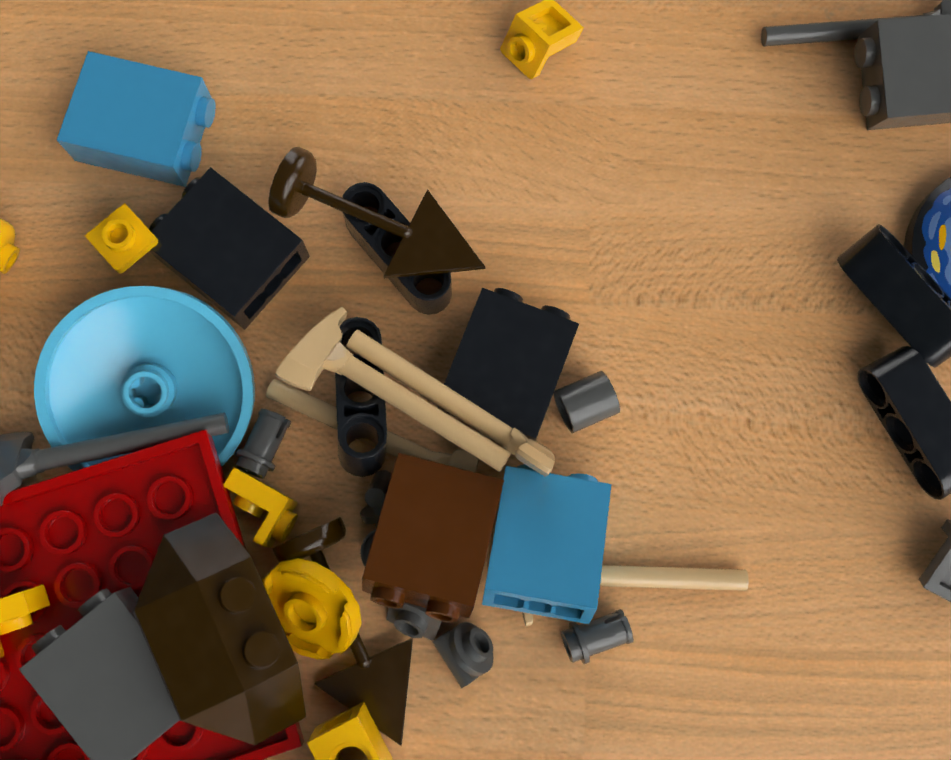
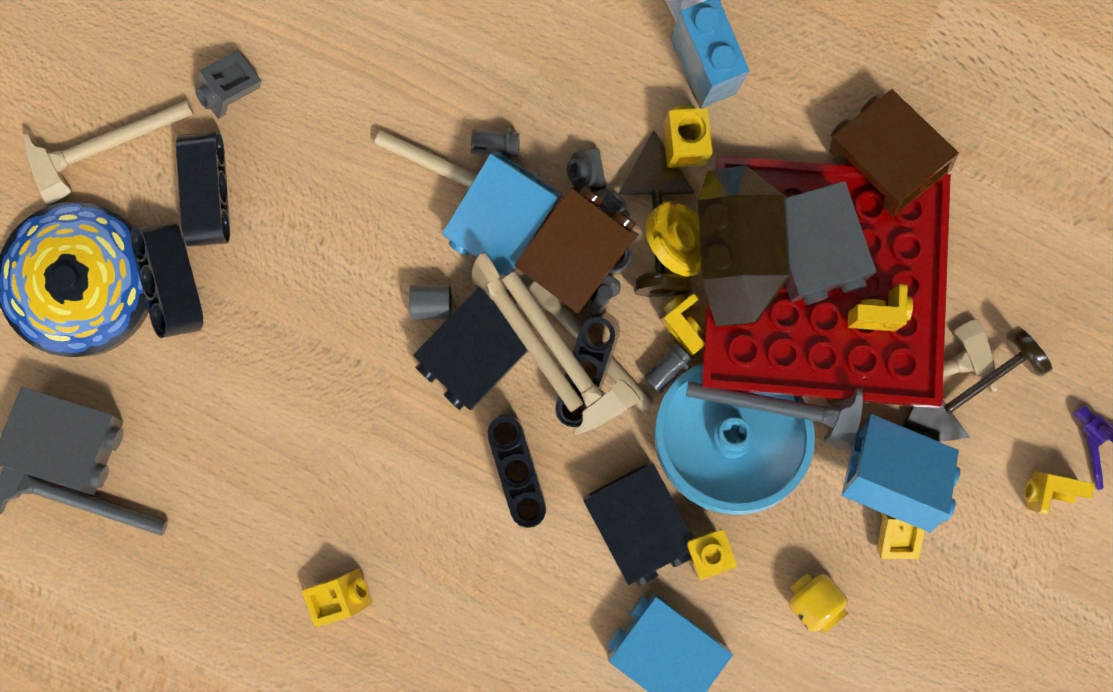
camera: 155 degrees left, 10 degrees up
(427, 245) = (493, 458): dark brown piece -> none

